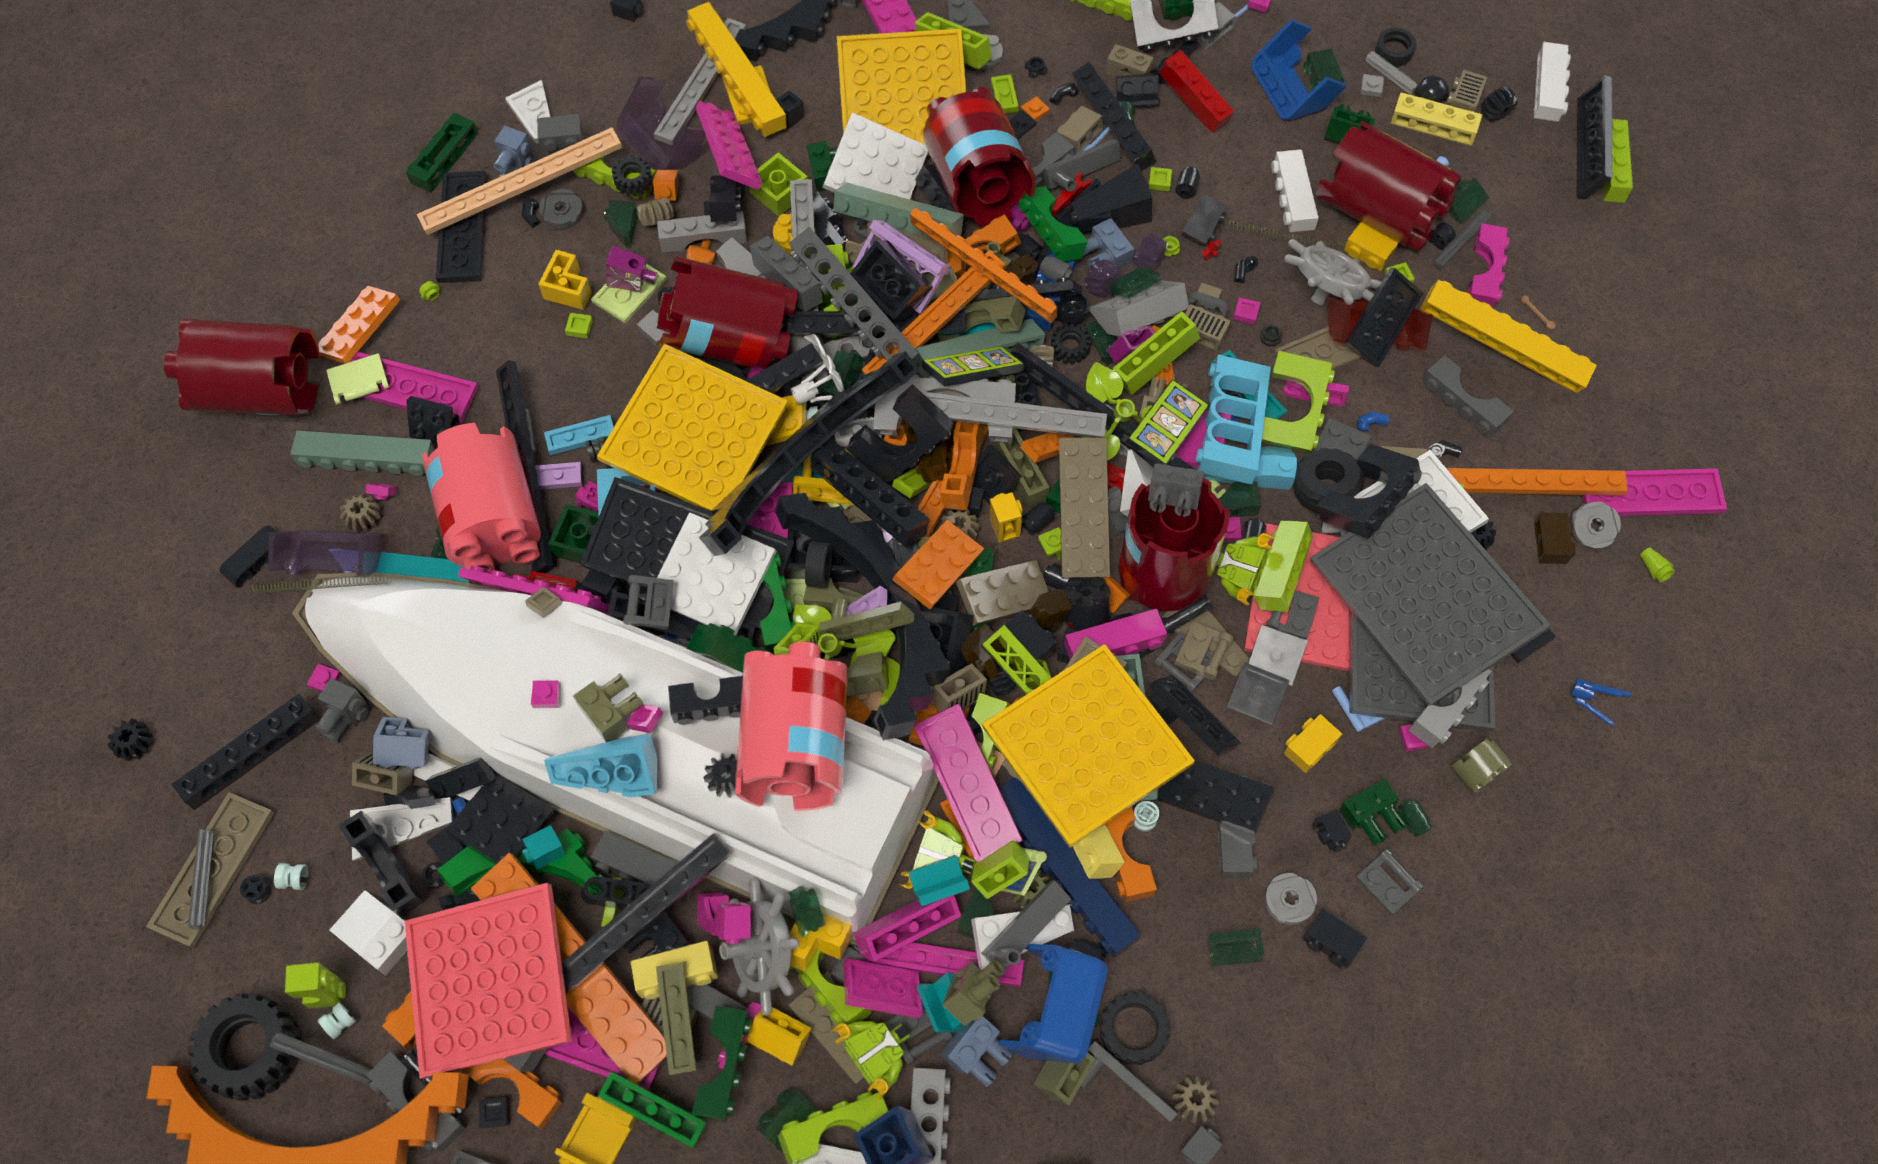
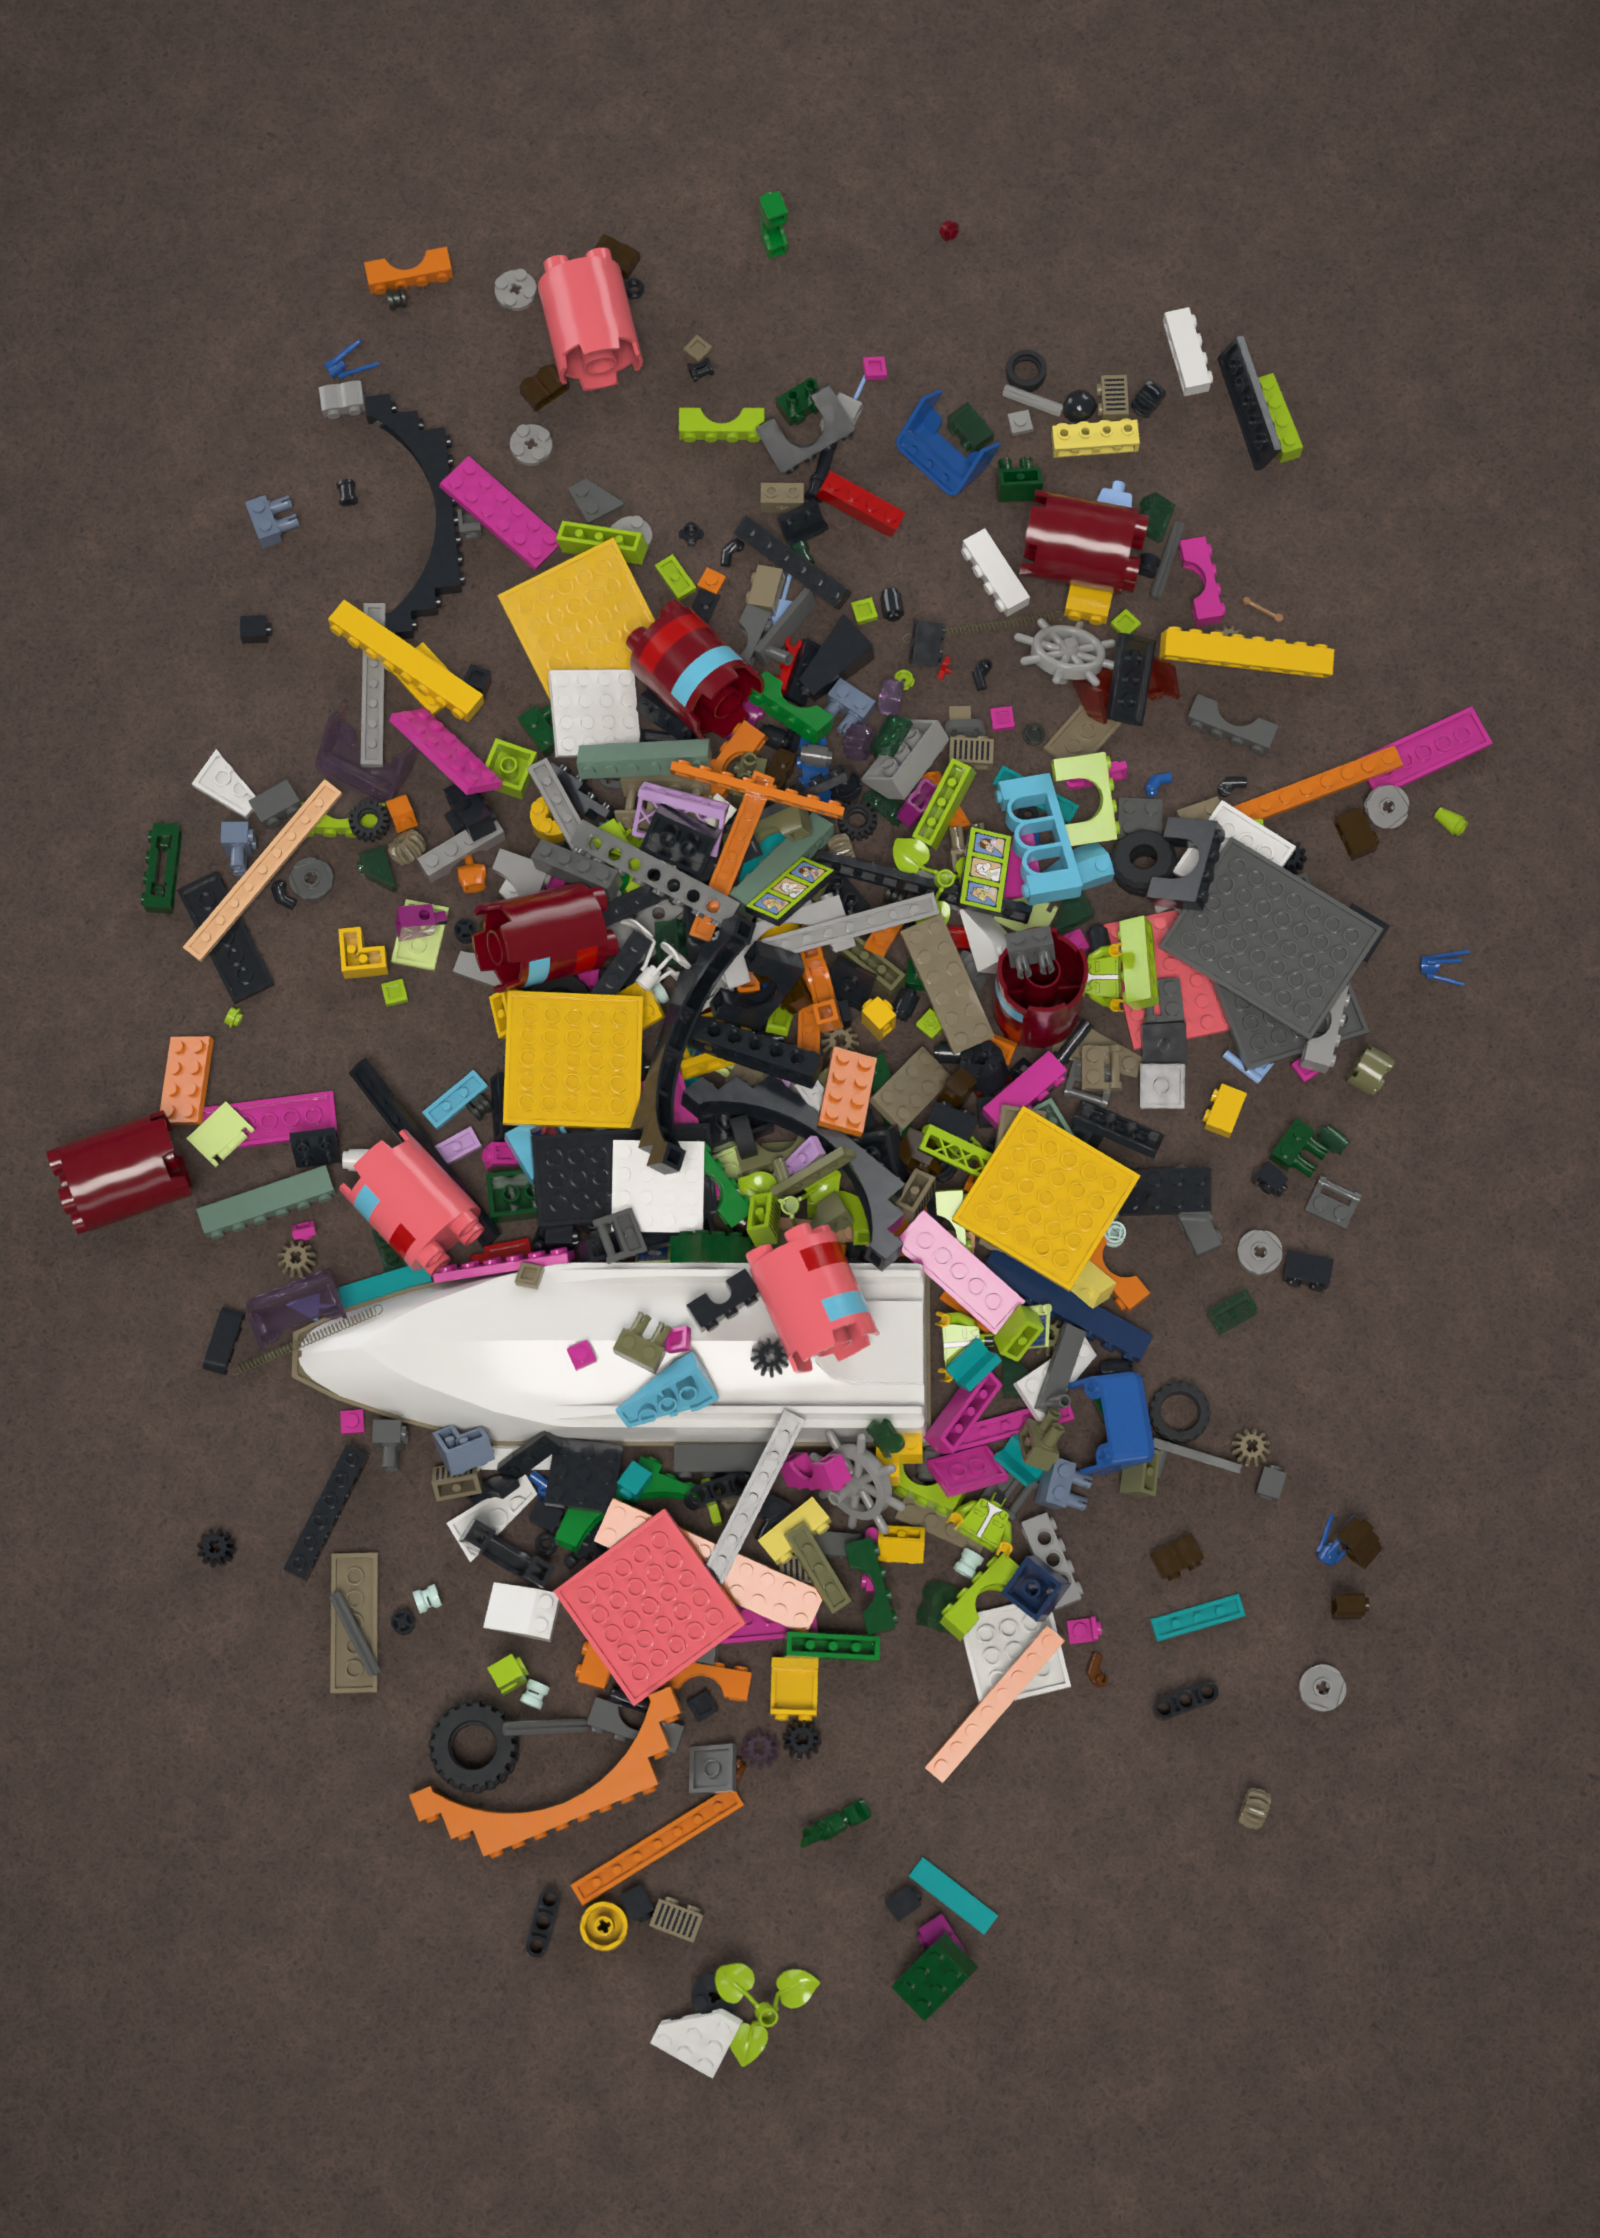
camera: 25 degrees left, 10 degrees up
(839, 1087) = (968, 1563): none -> light aqua wheel

